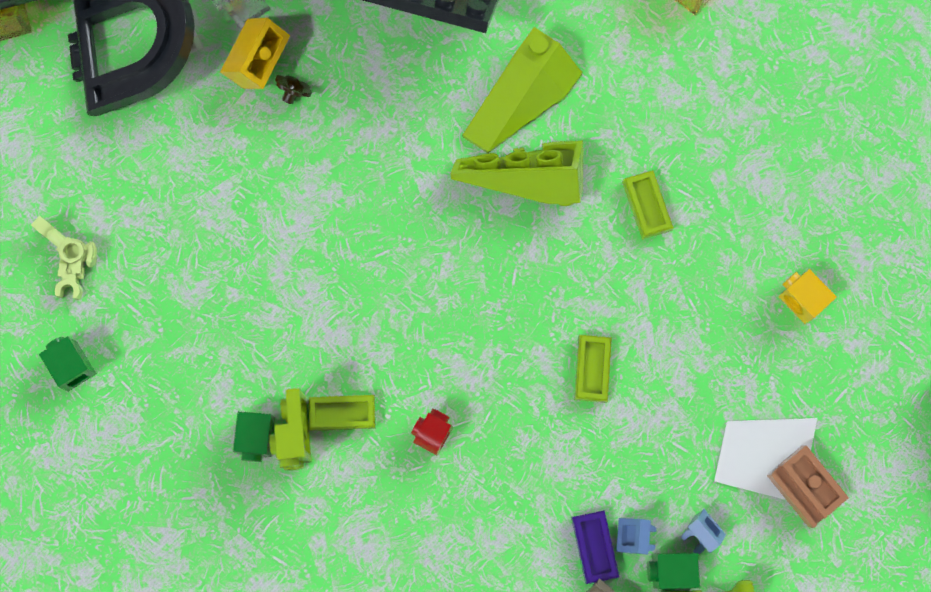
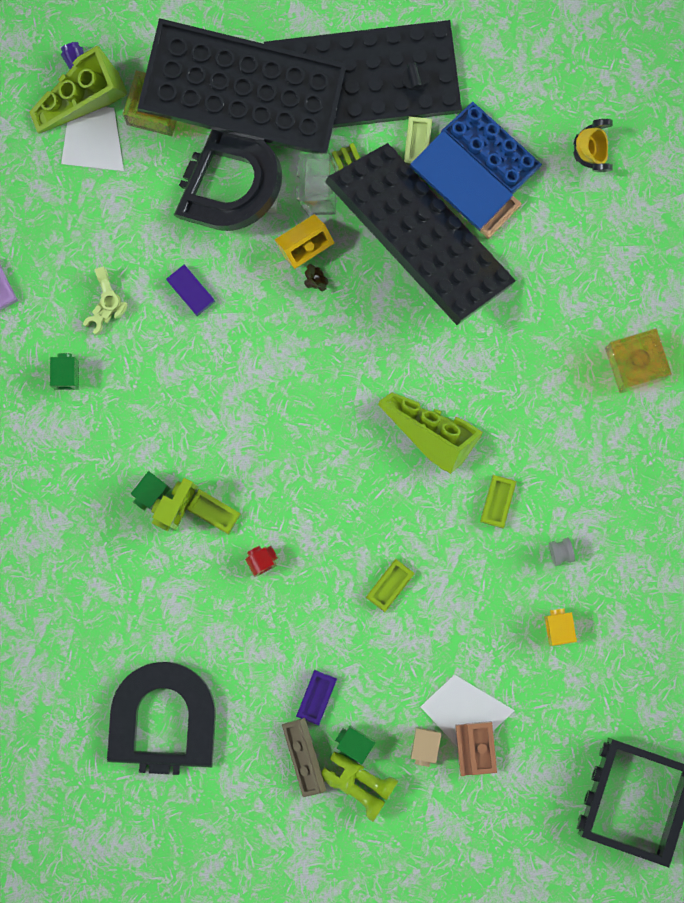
camera: 45 degrees right, 5 degrees up
(158, 184) = (190, 290): none -> dark purple tile
(529, 85) = (470, 373): lime wedge -> none
(634, 536) = (344, 707): medium blue tile -> none
(706, 531) = (391, 733): medium blue tile -> none
(752, 213) = (561, 551): none -> light grey wheel
(752, 520) = (425, 746): none -> tan brick

